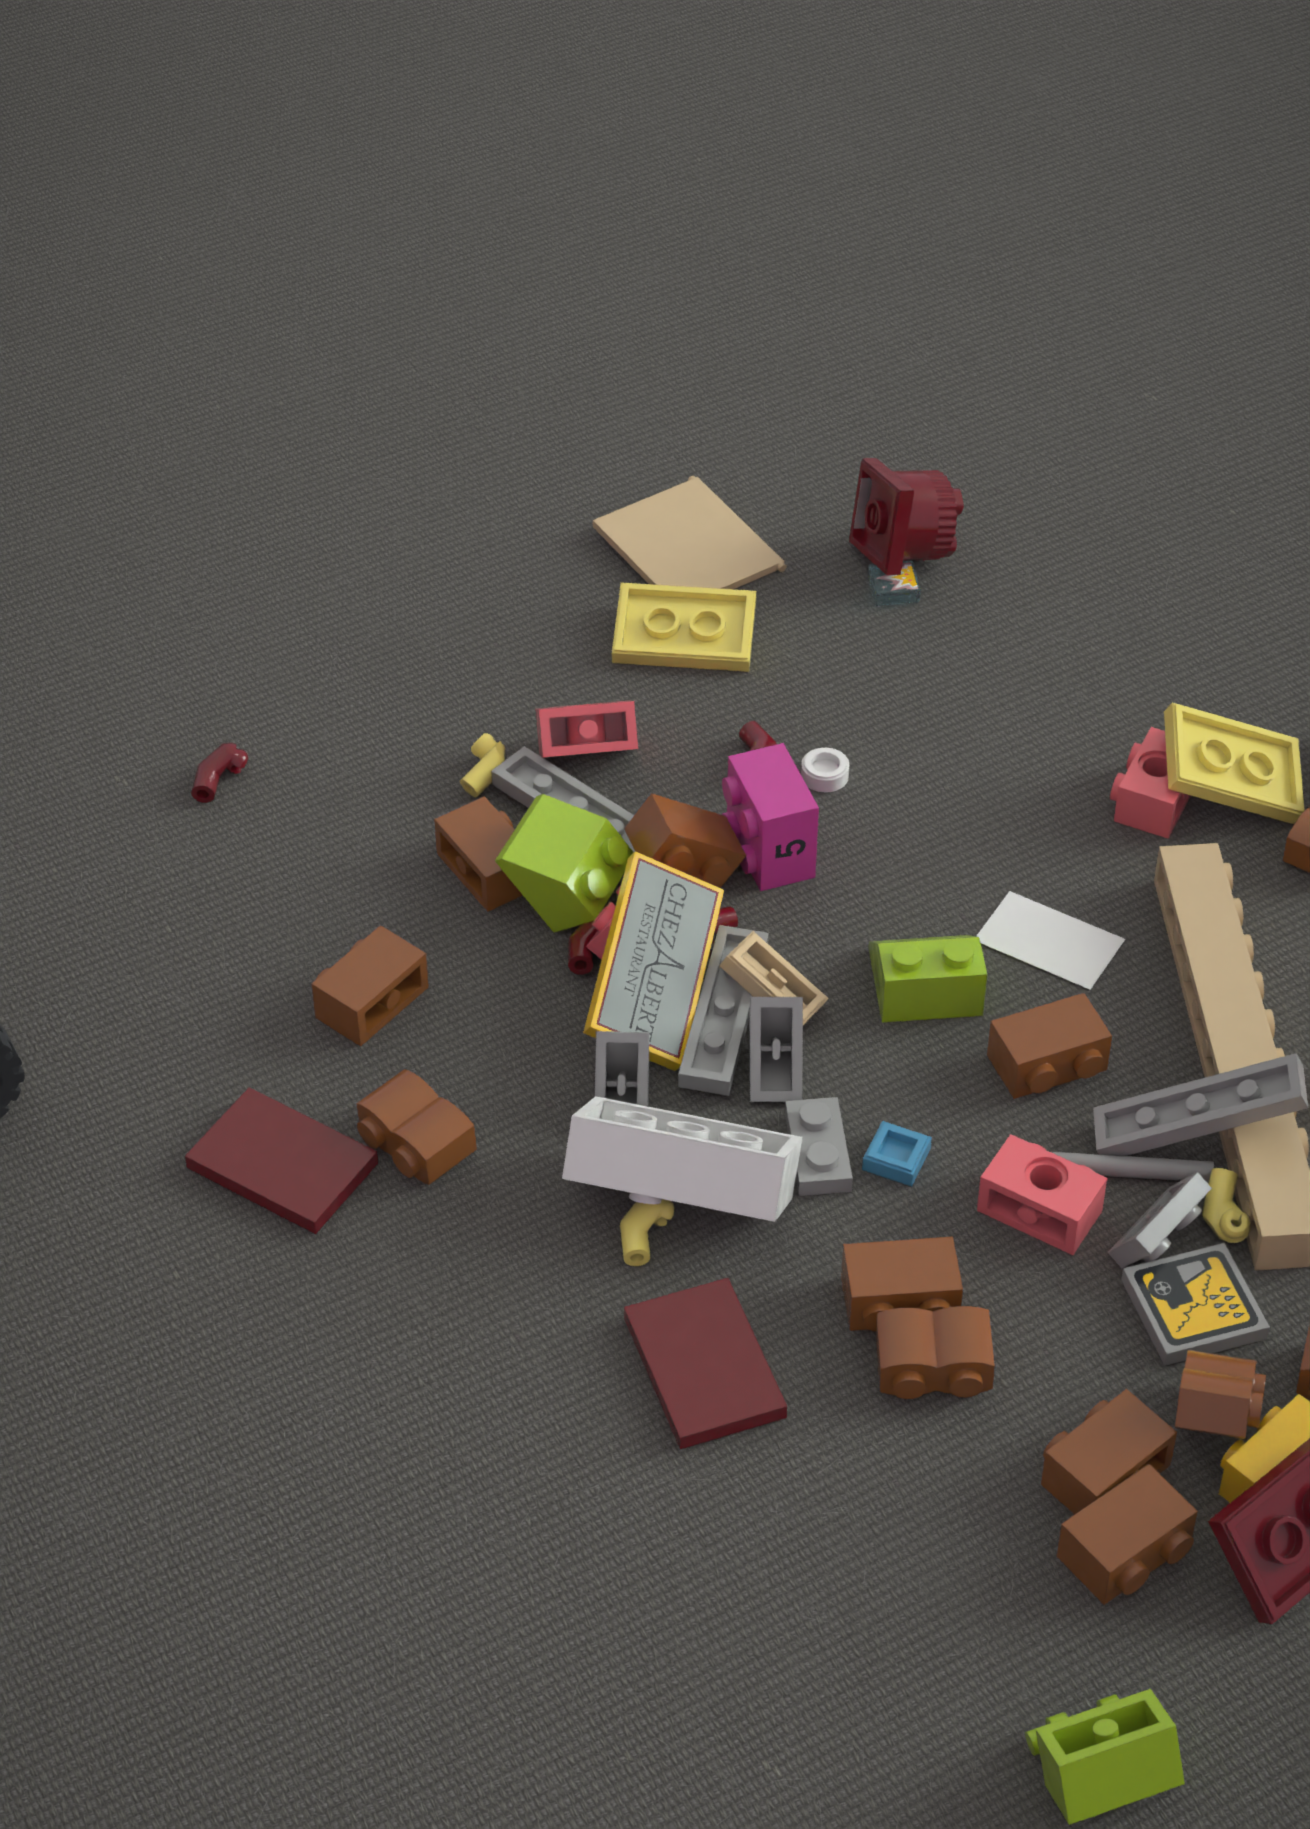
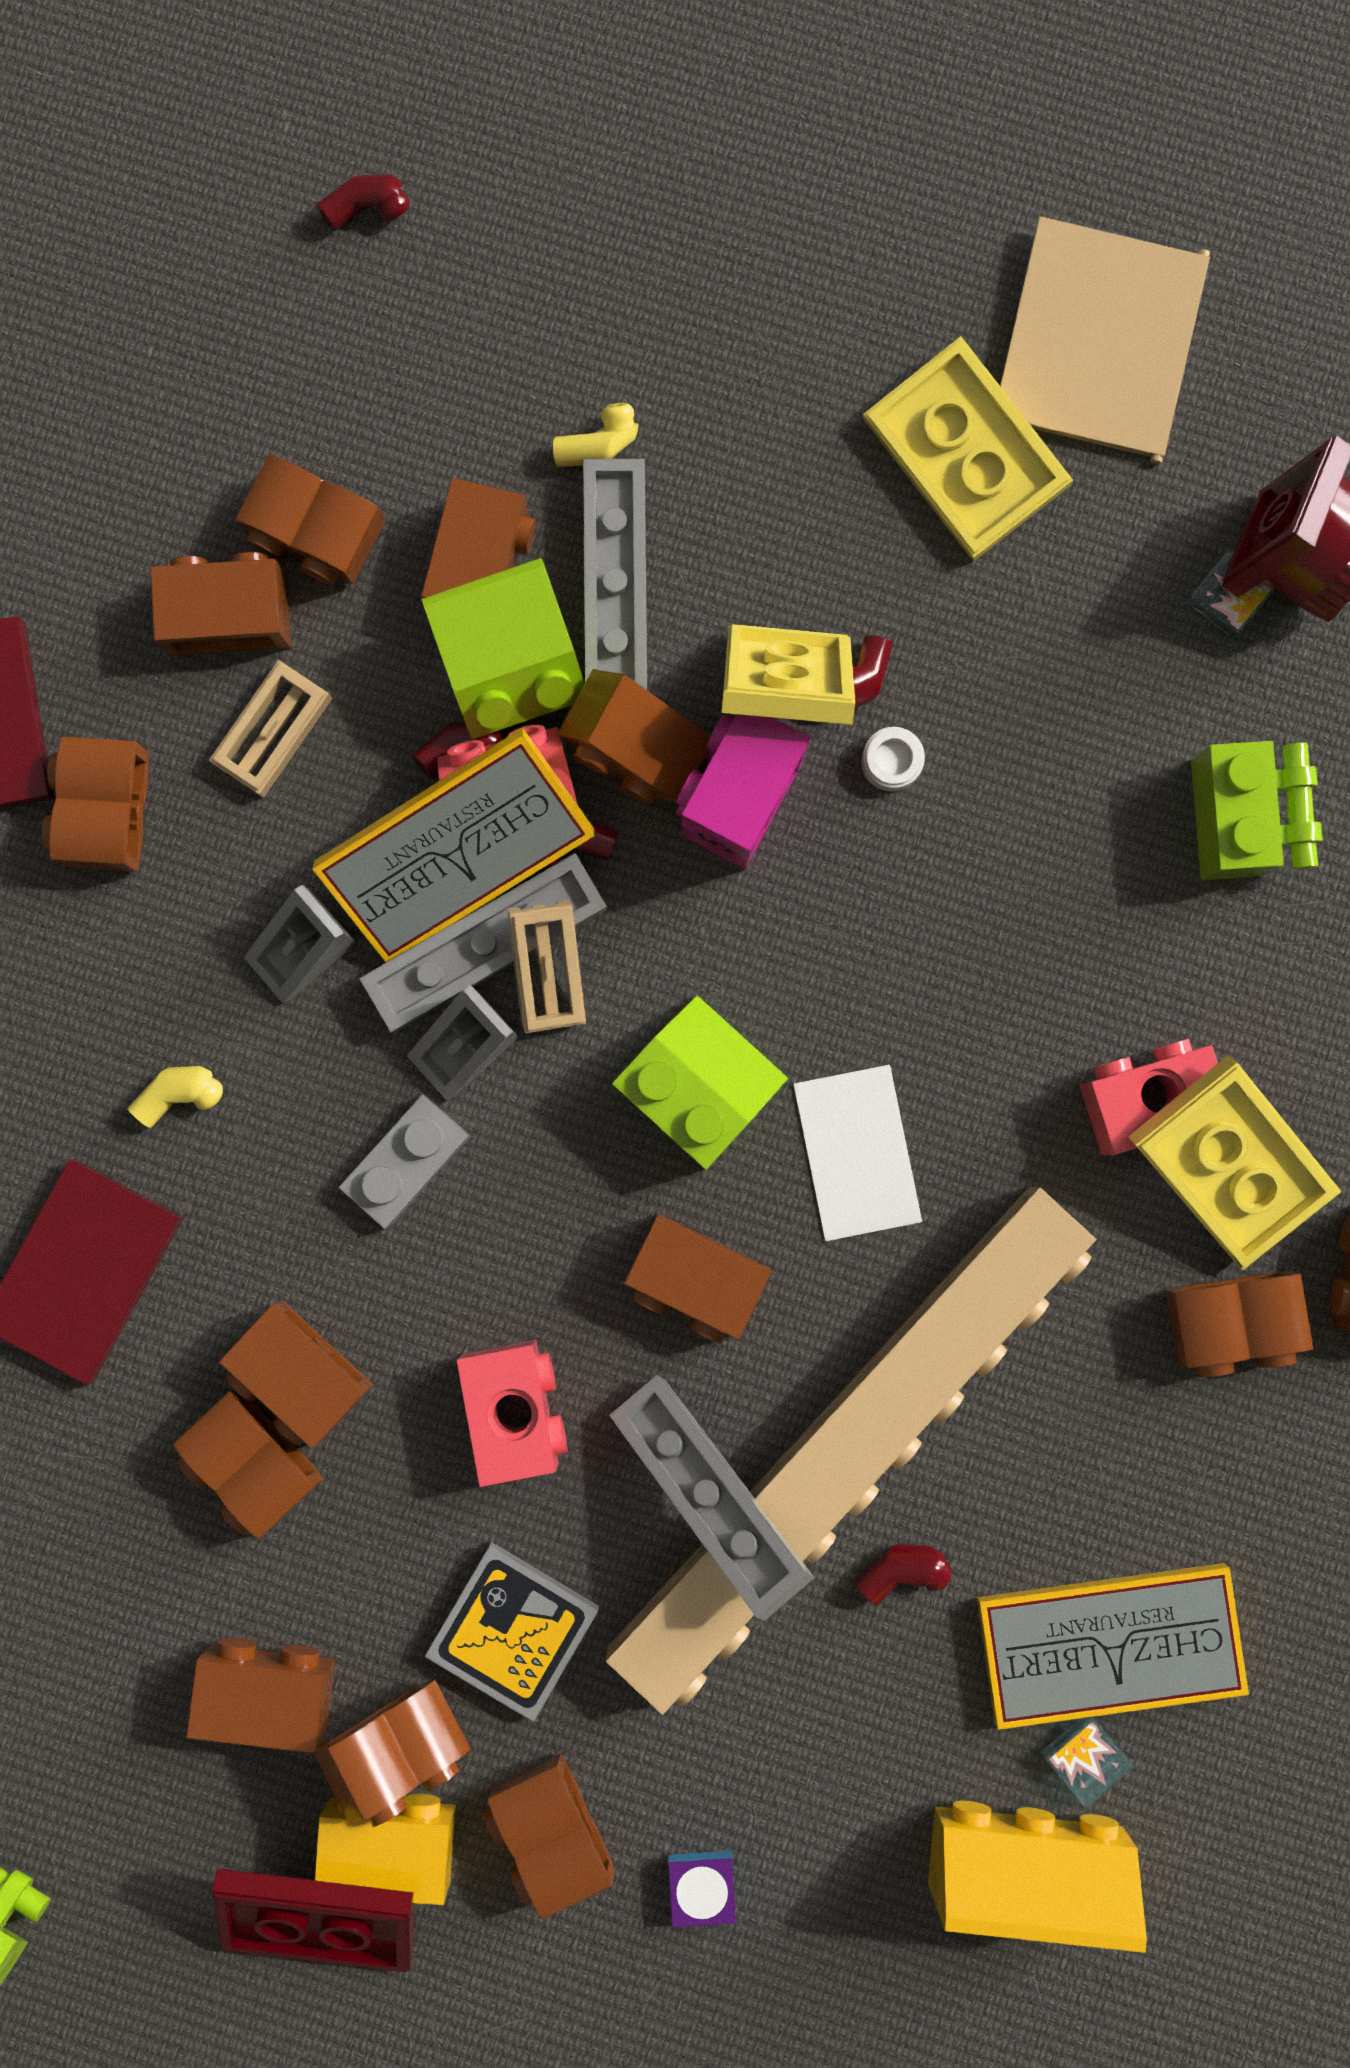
camera: 45 degrees right, 40 degrees up
(358, 906) = (309, 520): none -> dark orange brick
(474, 1052) = (291, 740): none -> tan tile
(586, 728) = (714, 498): coral brick -> none
(682, 1158) = (239, 1084): white brick -> none
(732, 742) = (789, 675): none -> light yellow tile
(896, 1153) = (458, 1236): dark azure tile -> none
(1027, 642) = (1240, 809): none -> lime brick
(1127, 1535) = (191, 1779): dark orange brick -> none
(1141, 1166) = (605, 1429): light grey bar -> none
(1172, 1210) = (568, 1540): light grey plate -> none
(1221, 1212) = (639, 1578): light yellow arm -> none

